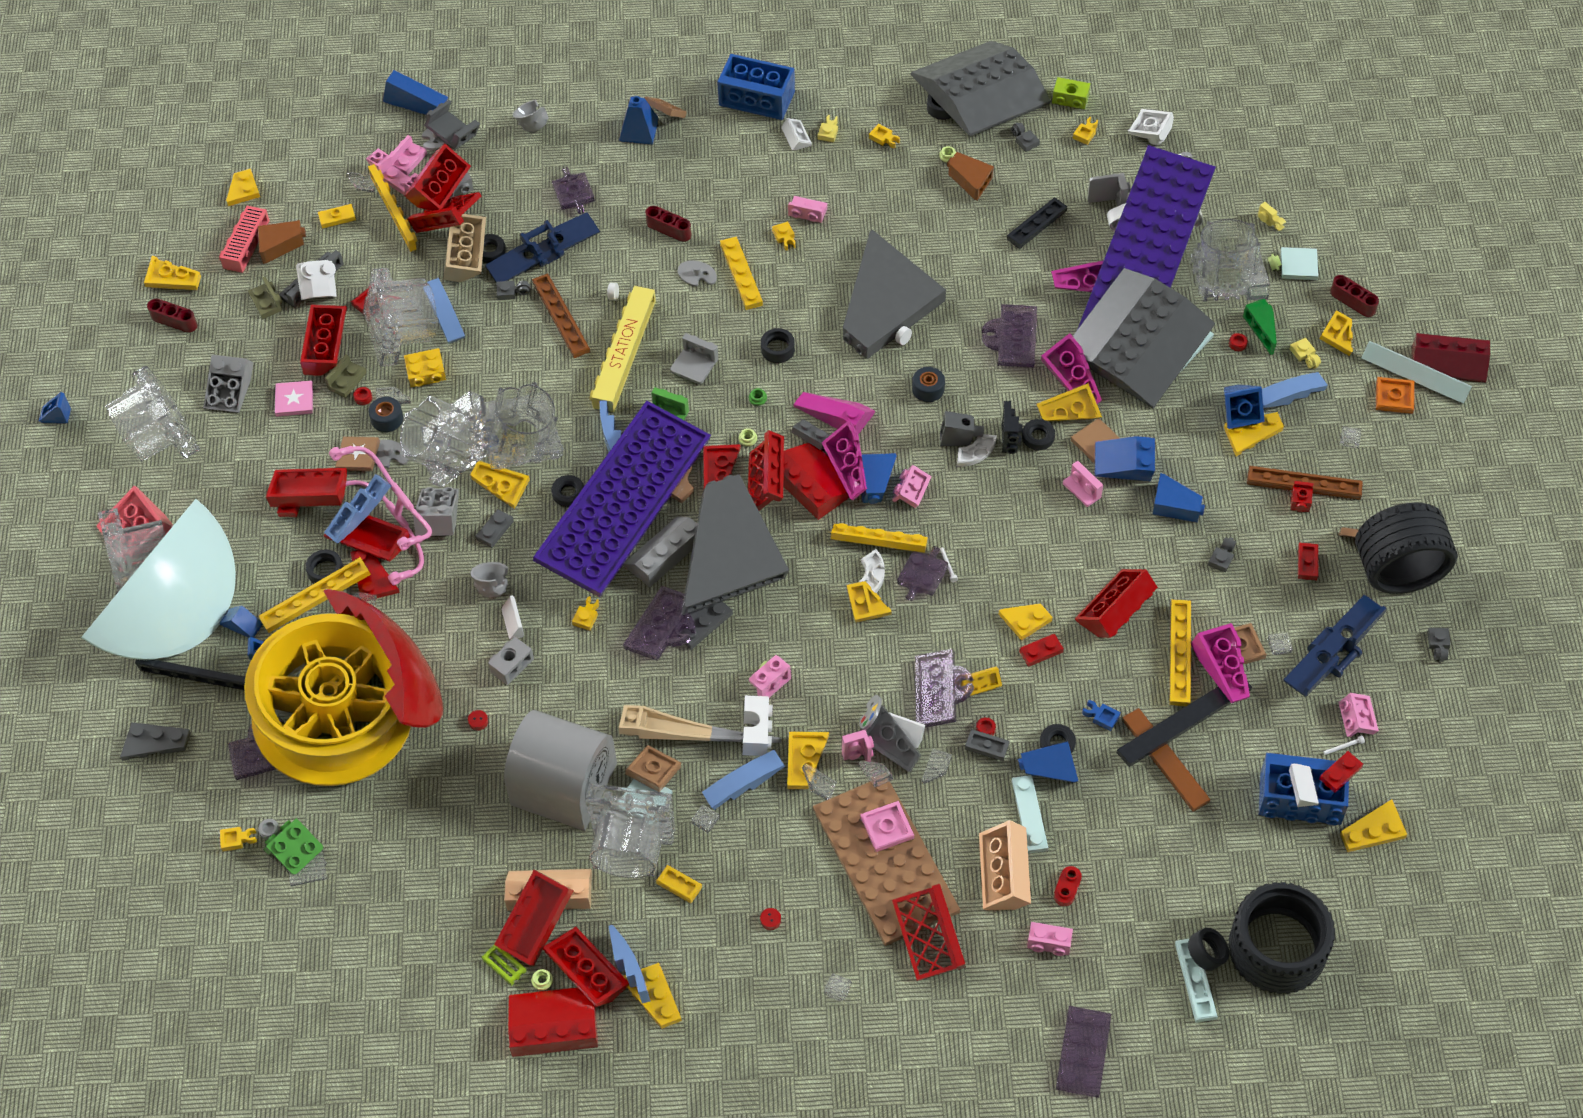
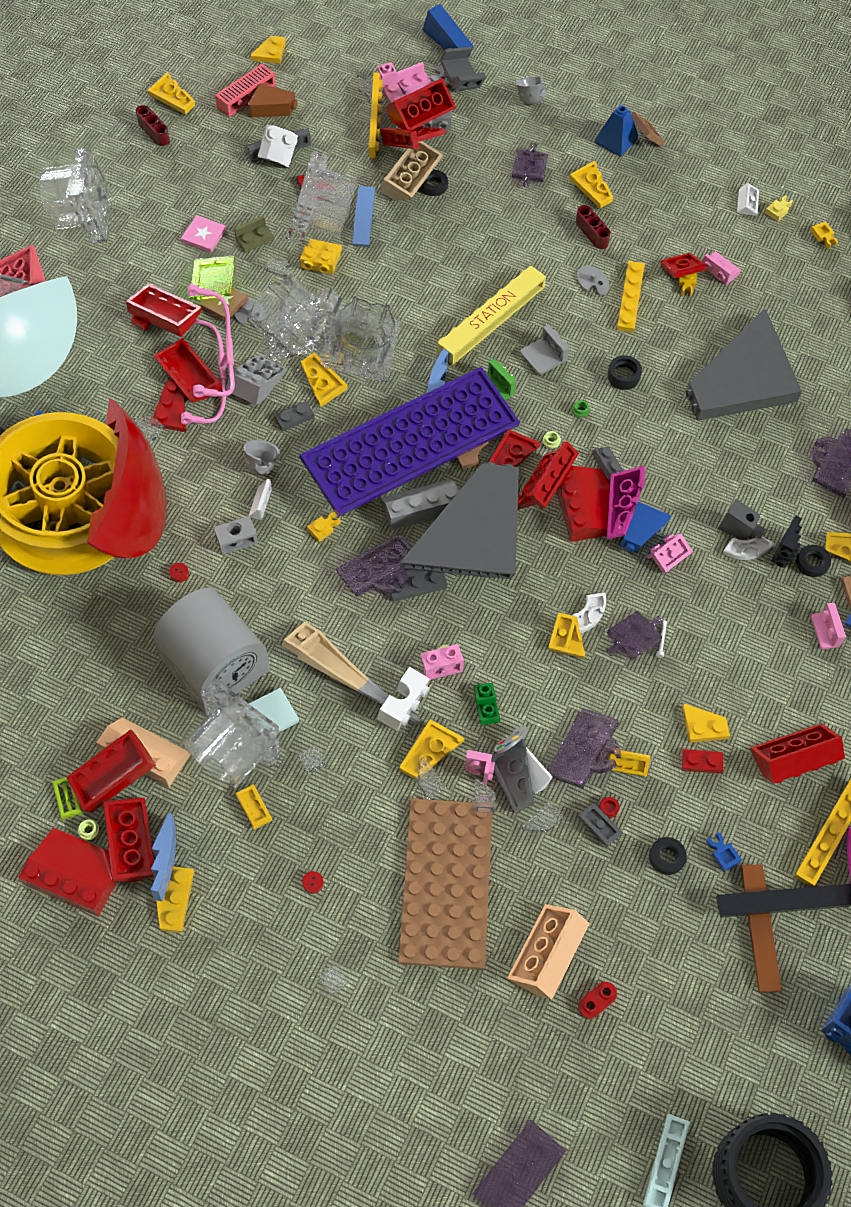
camera: 25 degrees right, 5 degrees up
(56, 410) = (20, 160): blue slope -> none
(227, 383) = (160, 197): light grey slope -> none
(241, 621) = (48, 396): blue slope -> none
(265, 299) = (231, 145): olive bracket -> none
(313, 595) = (126, 399): yellow plate -> none
(319, 557) = (135, 372): black tyre -> none
(322, 339) = (251, 194): red slope -> none
(329, 432) = (214, 275): none -> clear neon green piece
(336, 216) = (328, 103): yellow plate -> none
(358, 509) = (184, 348): medium blue slope -> none
(362, 396) = (258, 256): red tile -> none
(385, 414) = (263, 275): black wheel -> none
(507, 289) = (427, 223): dark grey plate -> none
(514, 263) = (476, 205): dark blue piece -> none
(560, 483) = (368, 404): black tyre -> none
(561, 315) = (457, 264): dark orange tile -> none
(613, 291) = (512, 263): white tile -> none
(643, 183) = (590, 182): none -> yellow wing
(653, 768) = (295, 691): medium nougat tile -> none
(743, 778) = (362, 741): medium blue slope -> none
(756, 86) = (735, 144): blue brick -> none
(773, 222) = (682, 265): none -> red tile
(828, 694) = (486, 704): none -> green slope
(834, 410) = (641, 453): dark pink wedge -> none
(879, 537) = (614, 584): yellow plate -> none
(887, 826) = (463, 853): bright pink tile -> none
(903, 335) = (740, 414): white tile -> none
(928, 384) = (738, 468): black wheel -> none
(946, 926) = (460, 980): red fence -> none
(1030, 813) = (602, 911): light aqua plate -> none
(1050, 762) = (647, 873): blue slope -> none
(1050, 939) = (551, 1043): bright pink bracket -> none
(1199, 953) = (707, 1141): black tyre -> none

